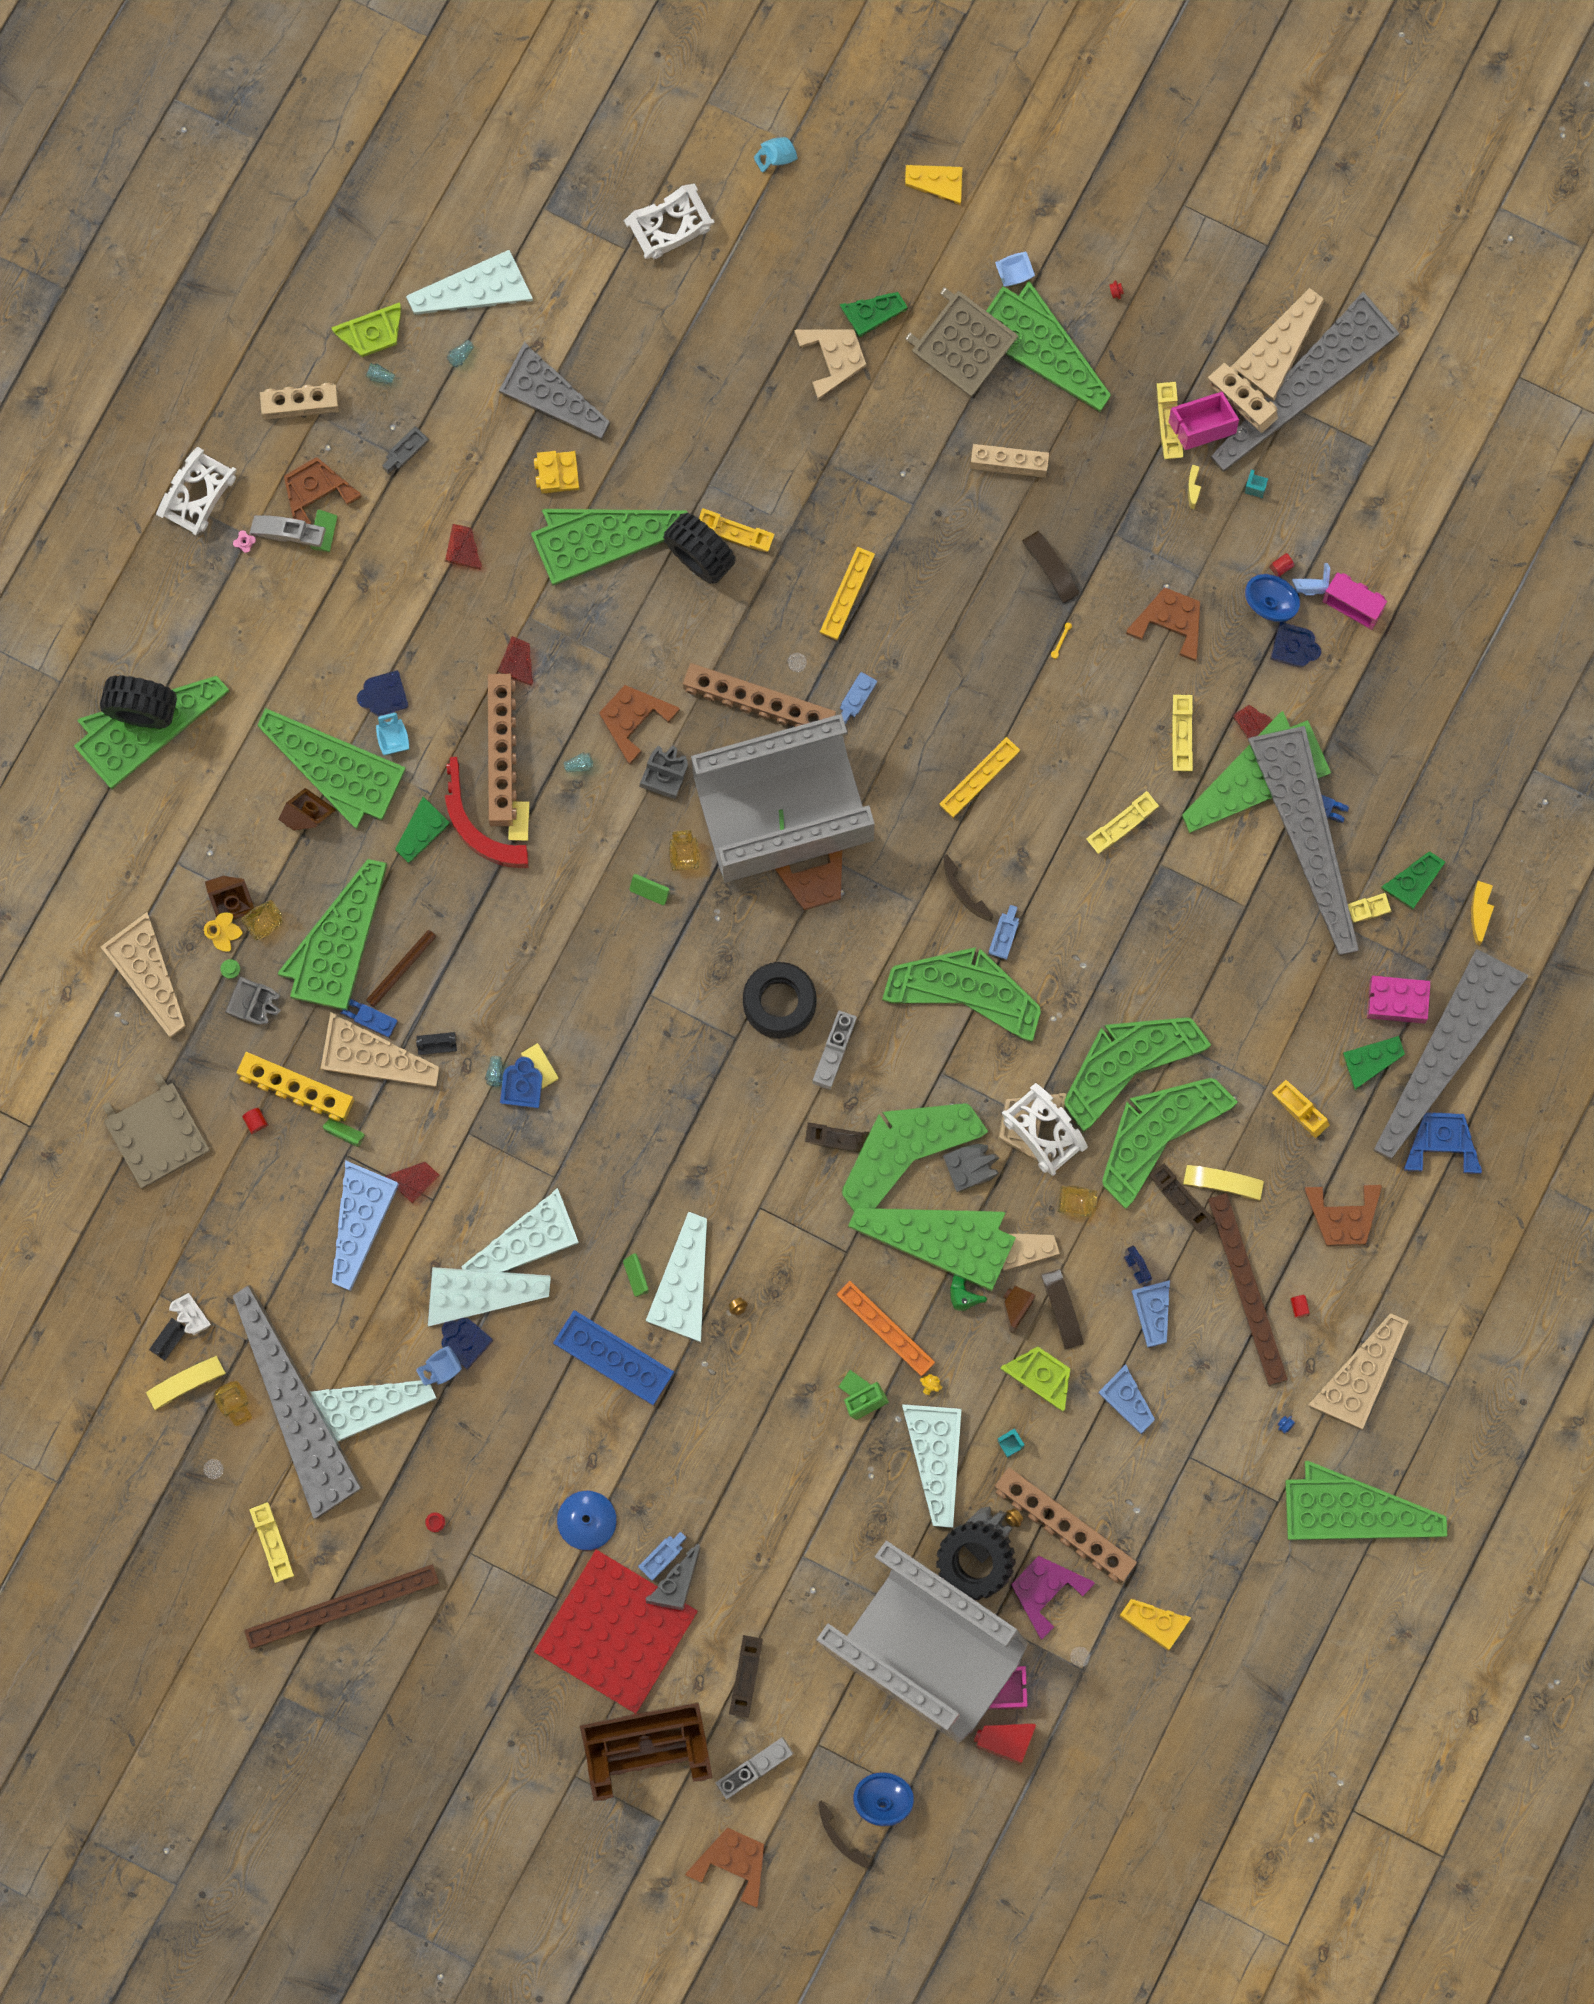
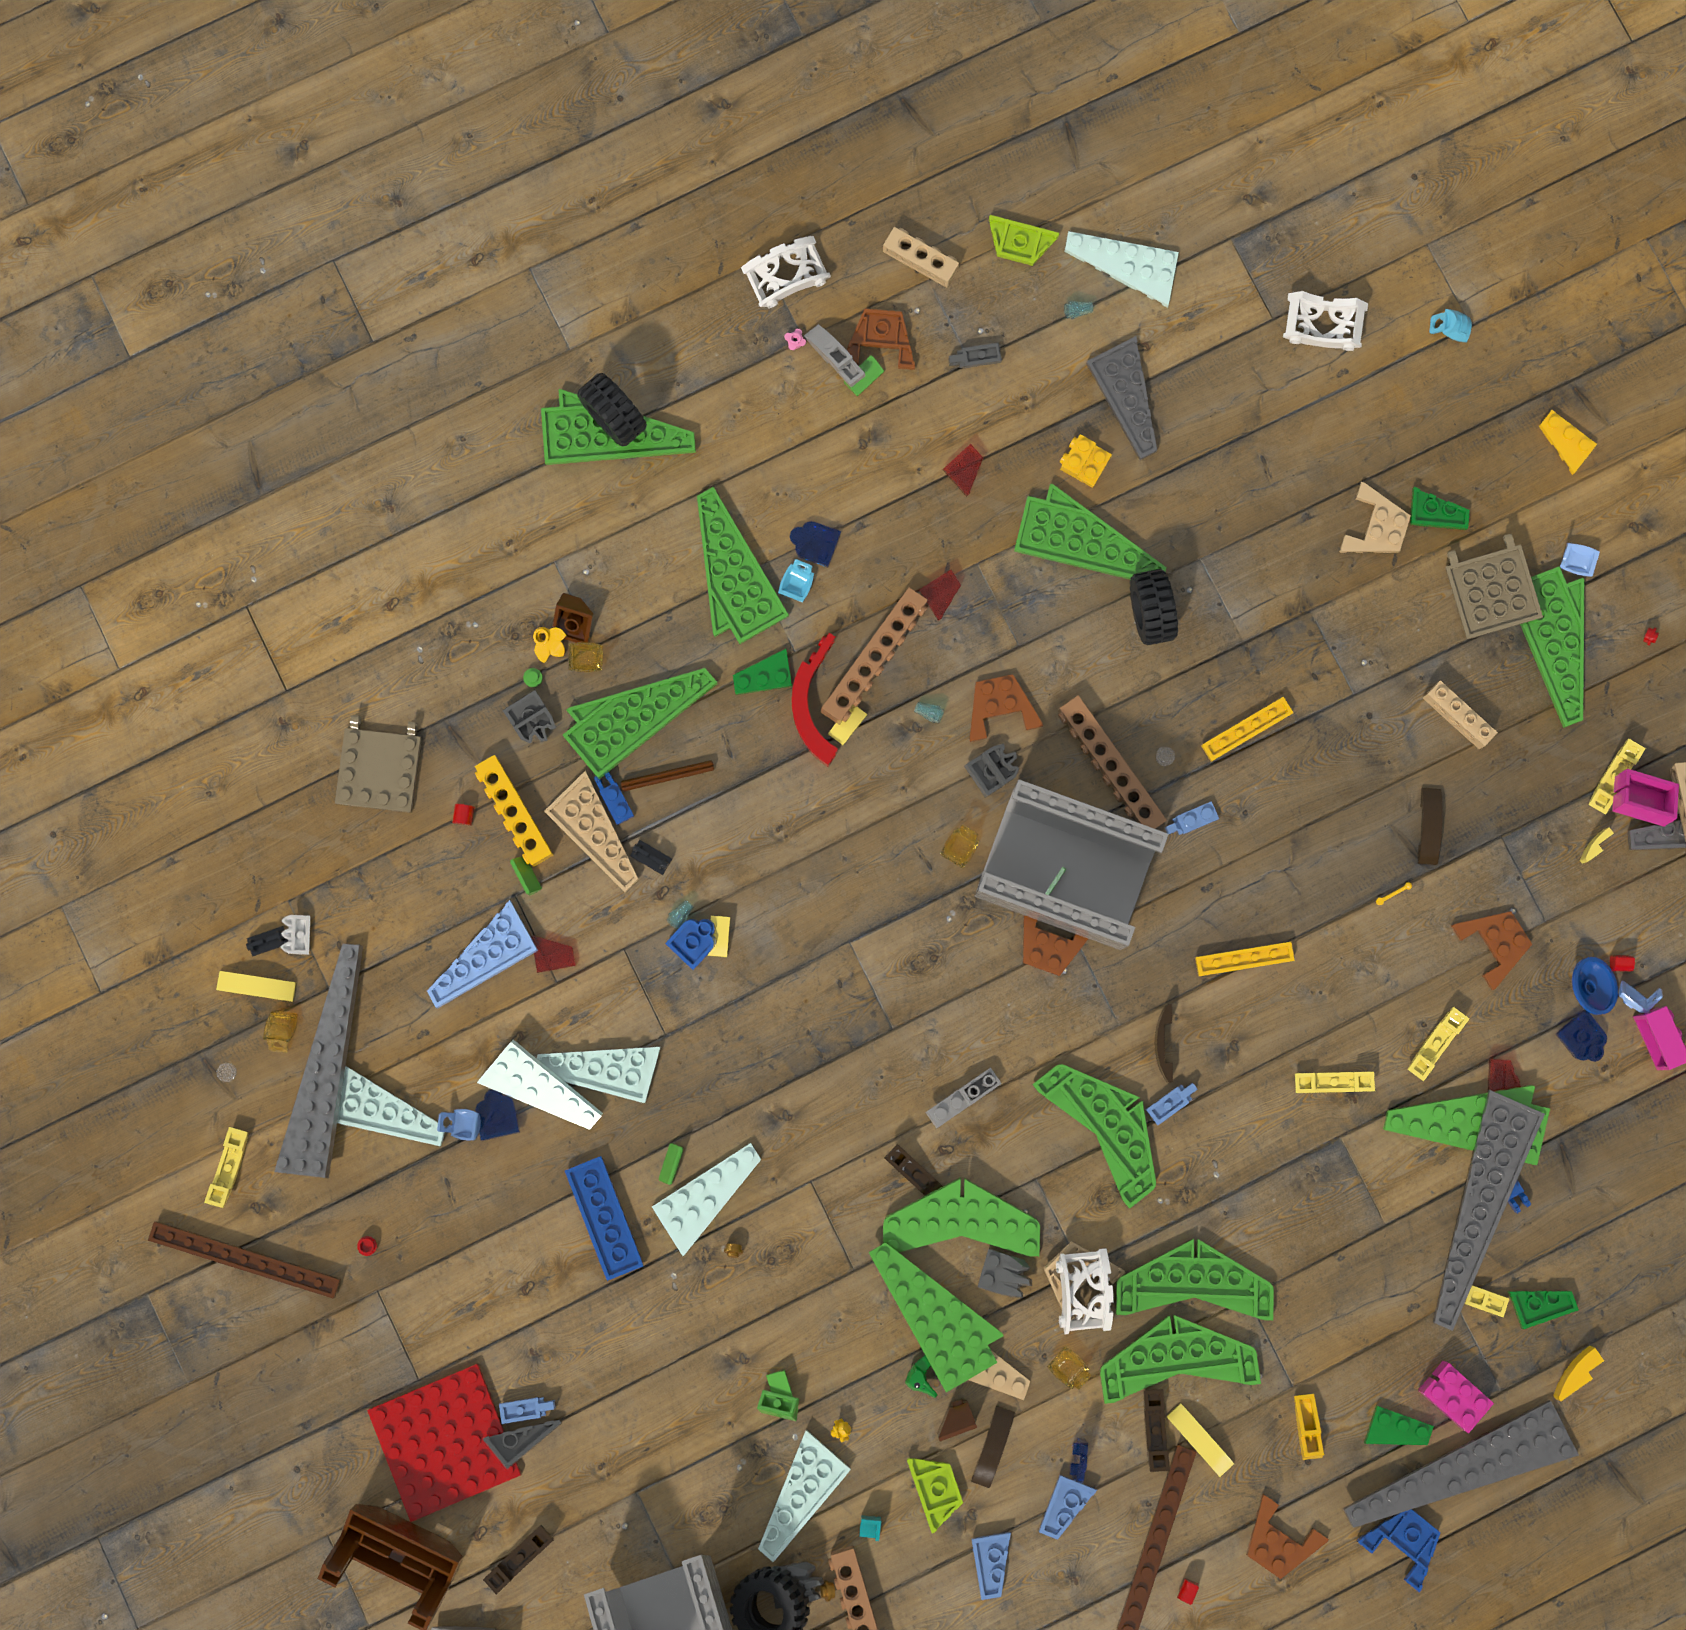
camera: 35 degrees right, 5 degrees up
(142, 965) = (466, 622): tan wing -> none
(305, 811) = (684, 593): reddish brown slope -> none
(379, 374) = (1001, 280): clear light blue cone -> none
(590, 1534) = (501, 1331): blue dish -> none
(649, 889) = (910, 856): bright green slope -> none
(737, 533) = (1193, 613): yellow slope -> none
(779, 974) = (949, 998): black tyre -> none
(885, 1328) = (838, 1357): orange plate -> none
(1256, 485) = (1649, 880): teal panel -> none

